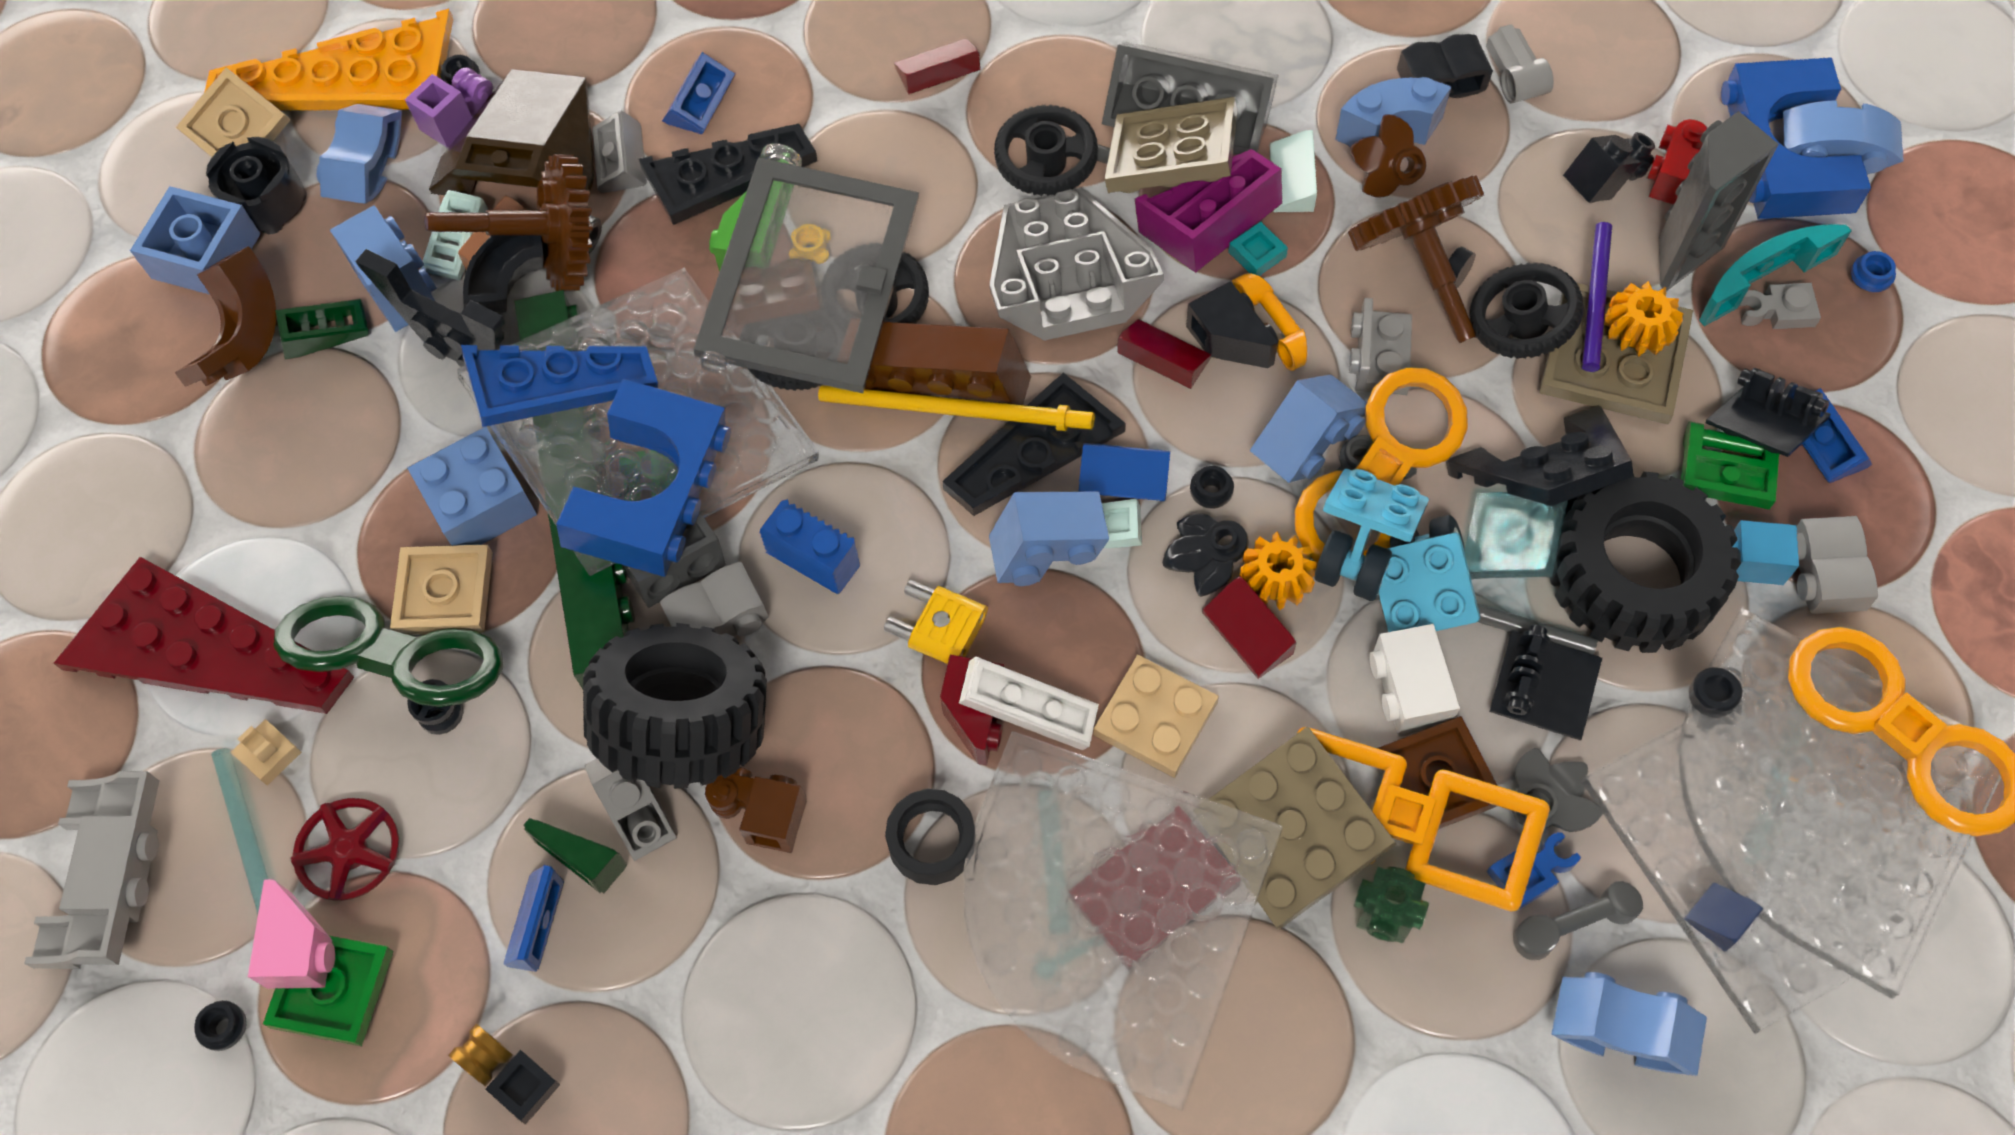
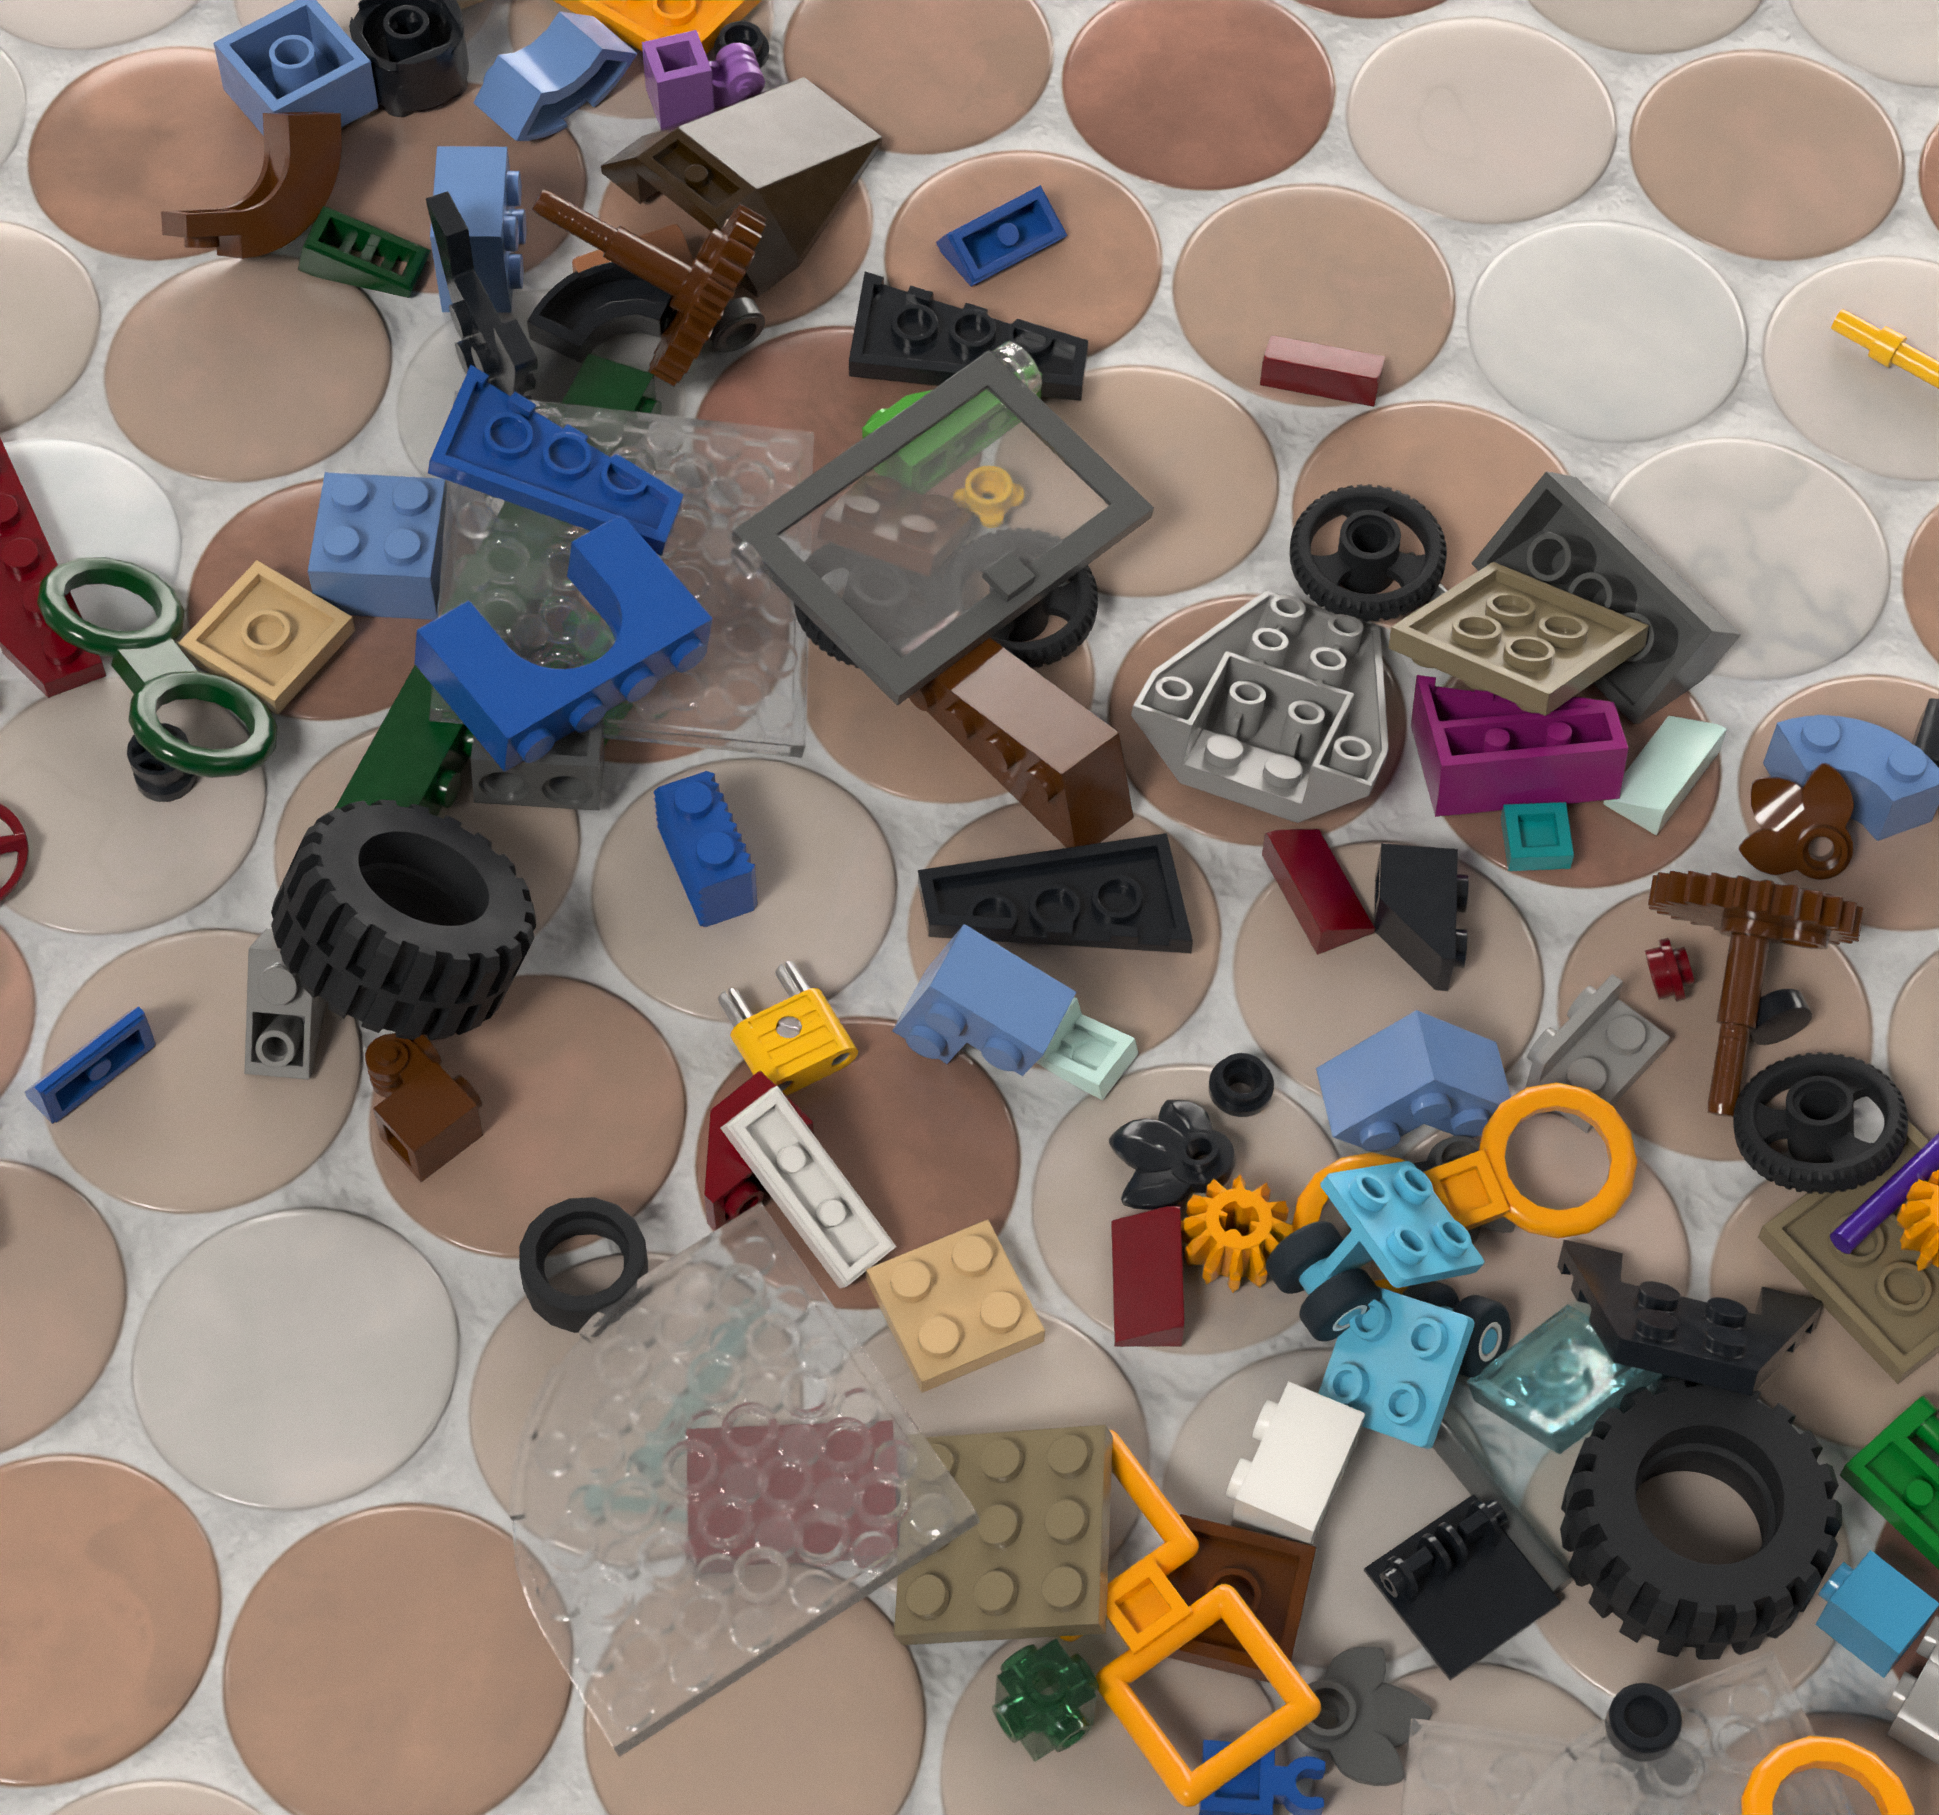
camera: 30 degrees right, 5 degrees down
(438, 244) = (610, 204): light aqua slope -> none
(587, 859) = (194, 1038): dark green slope -> none
(617, 151) = (857, 241): light grey slope -> none
(720, 601) = (554, 848): light grey brick -> none
(1060, 417) = (1113, 882): yellow bar -> none
(1124, 471) = (1145, 998): blue slope -> none
(1291, 348) = (1492, 887): light orange bar -> none
(1383, 278) = (1669, 970): none -> dark red plate

